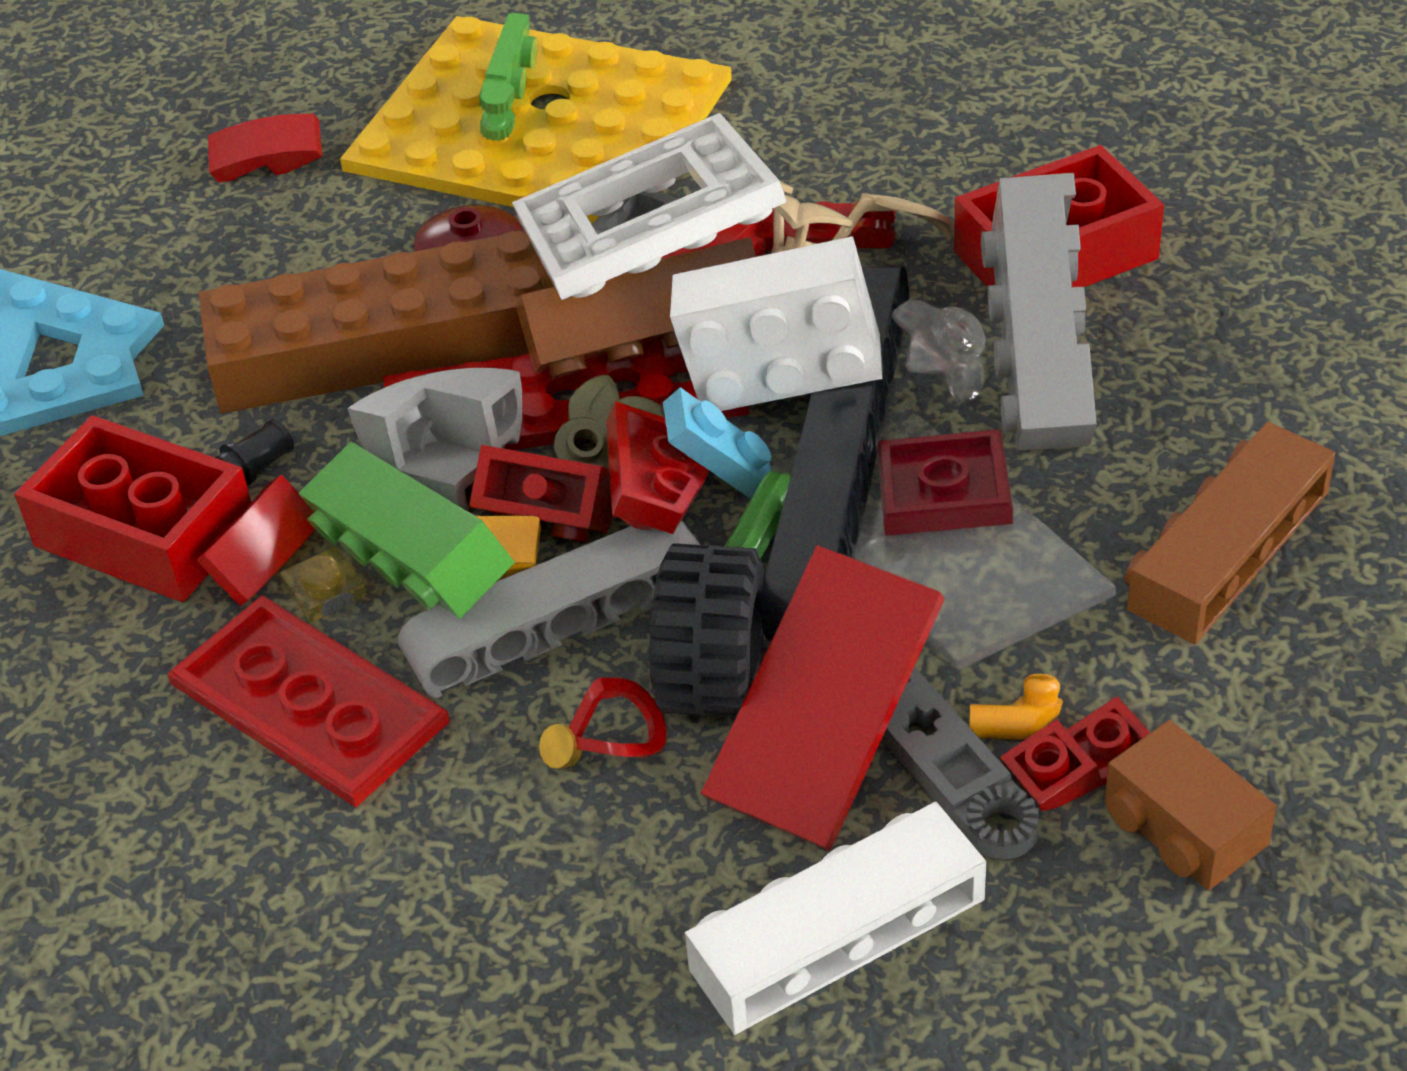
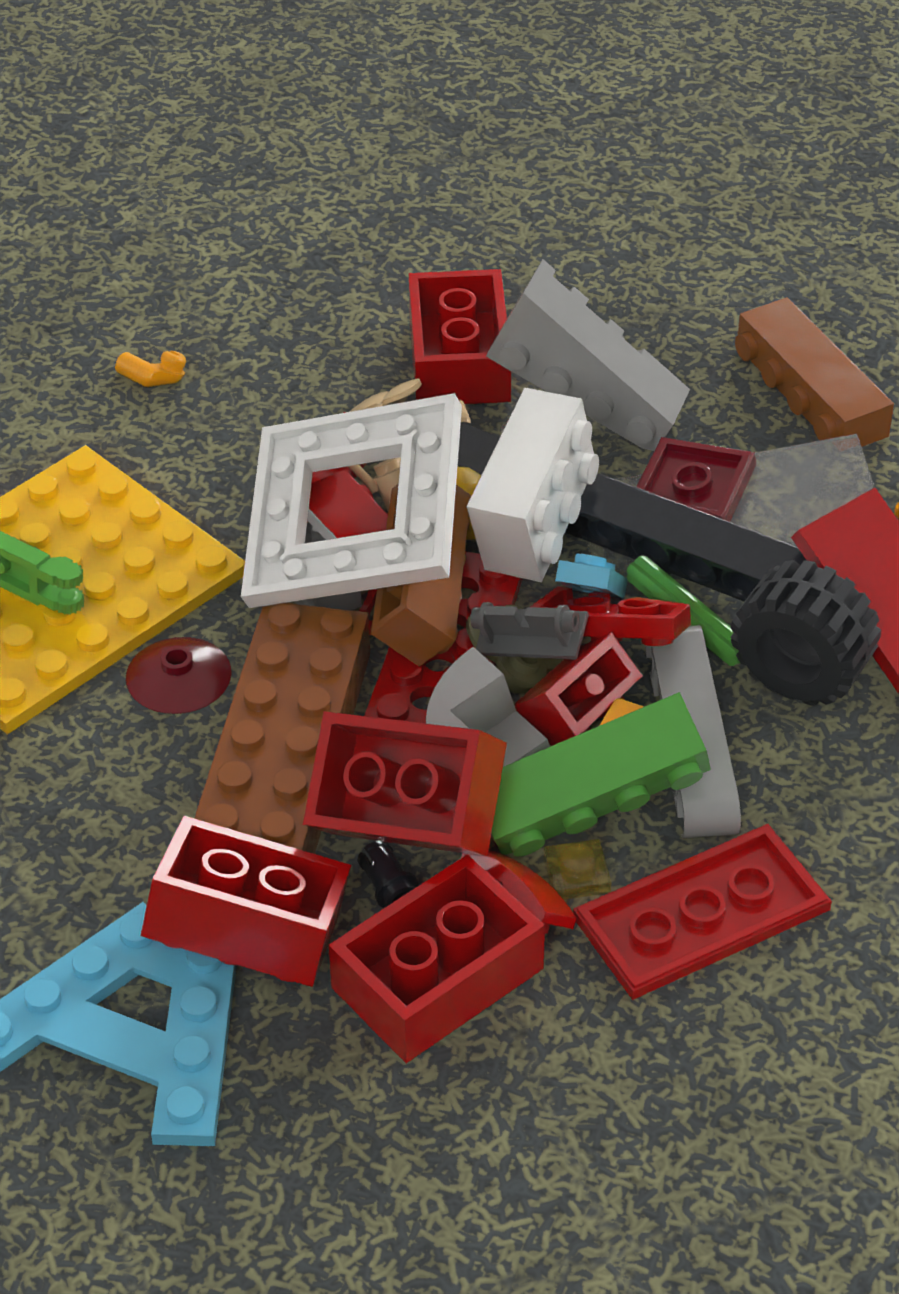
camera: 70 degrees left, 0 degrees up
(143, 348) = (245, 901): none -> red brick
(292, 387) = (405, 783): none -> red brick
(563, 743) = (835, 766): red piece -> none
(585, 409) = (529, 631): none -> dark grey hinge
(873, 68) = (152, 374): none -> light orange arm

